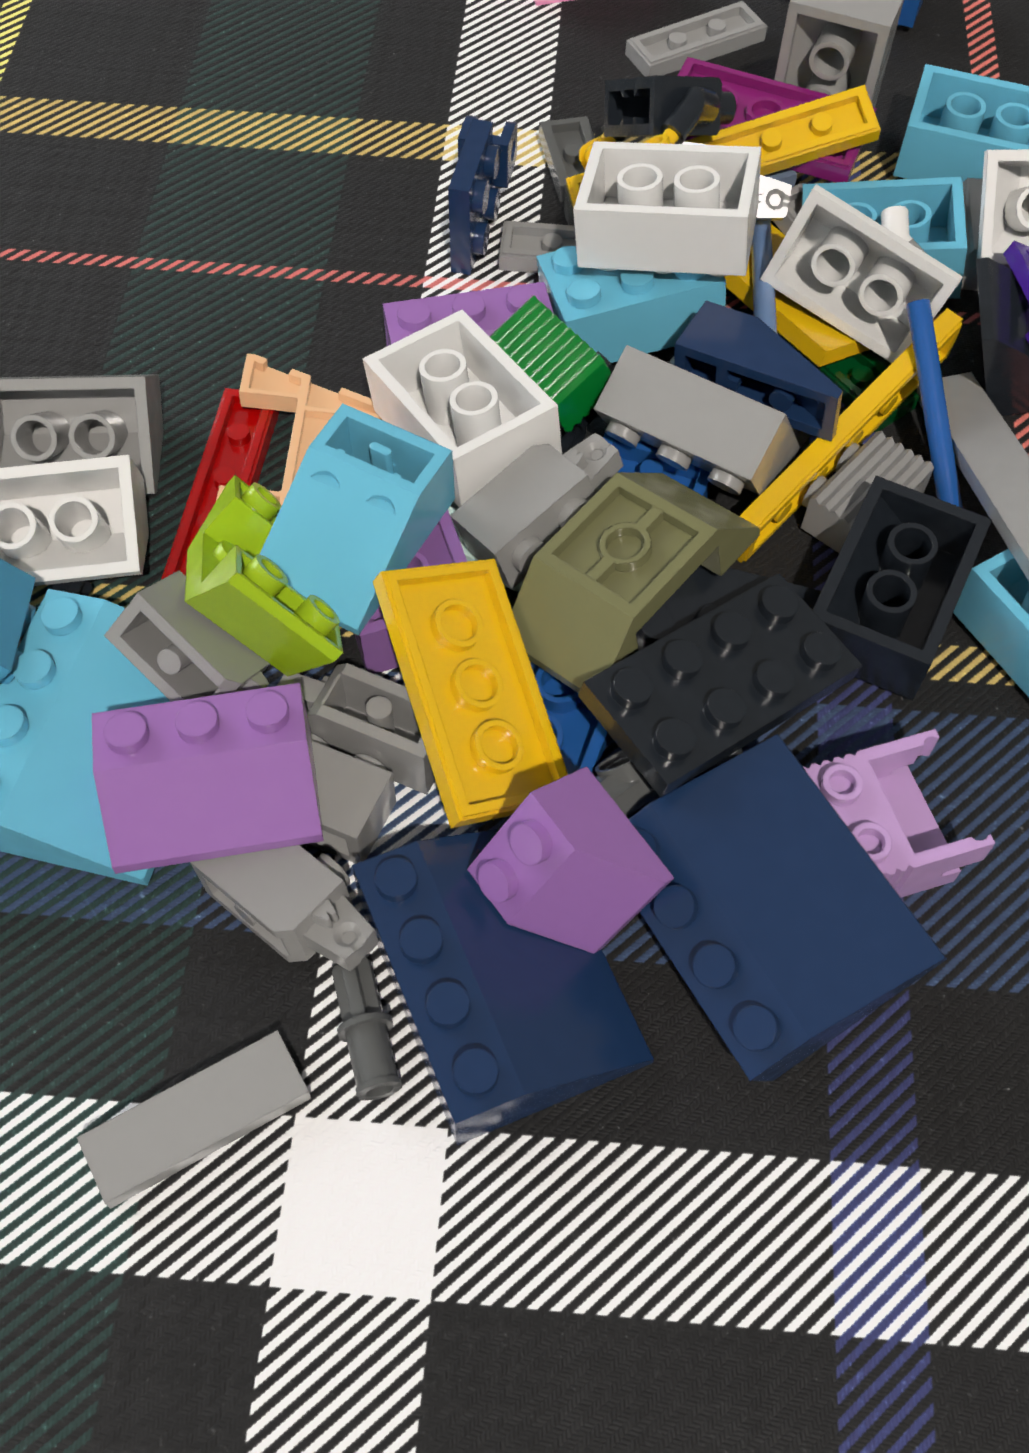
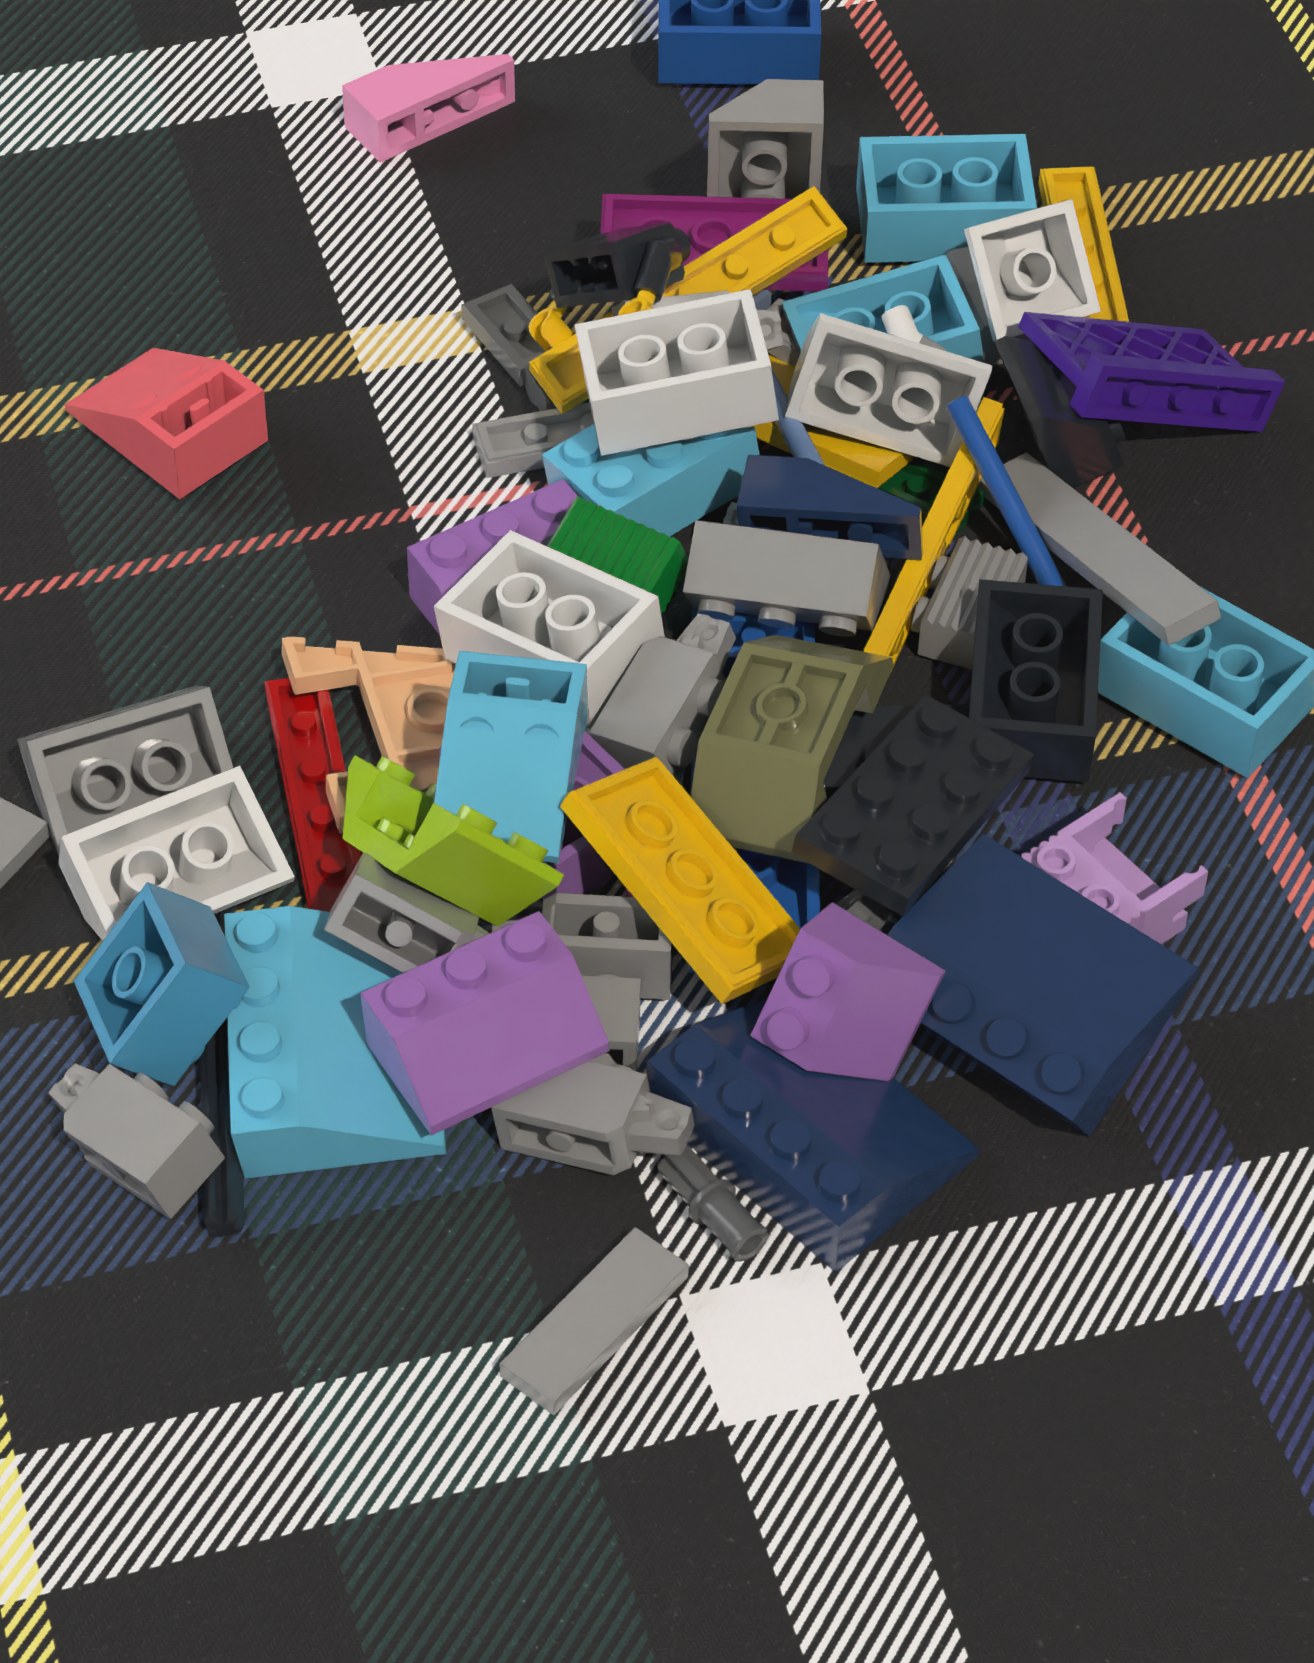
camera: 20 degrees left, 10 degrees down
(269, 155) = (176, 416): none -> coral slope
(482, 163) = (434, 369): dark blue plate -> none
(697, 37) = (584, 160): light grey tile -> none

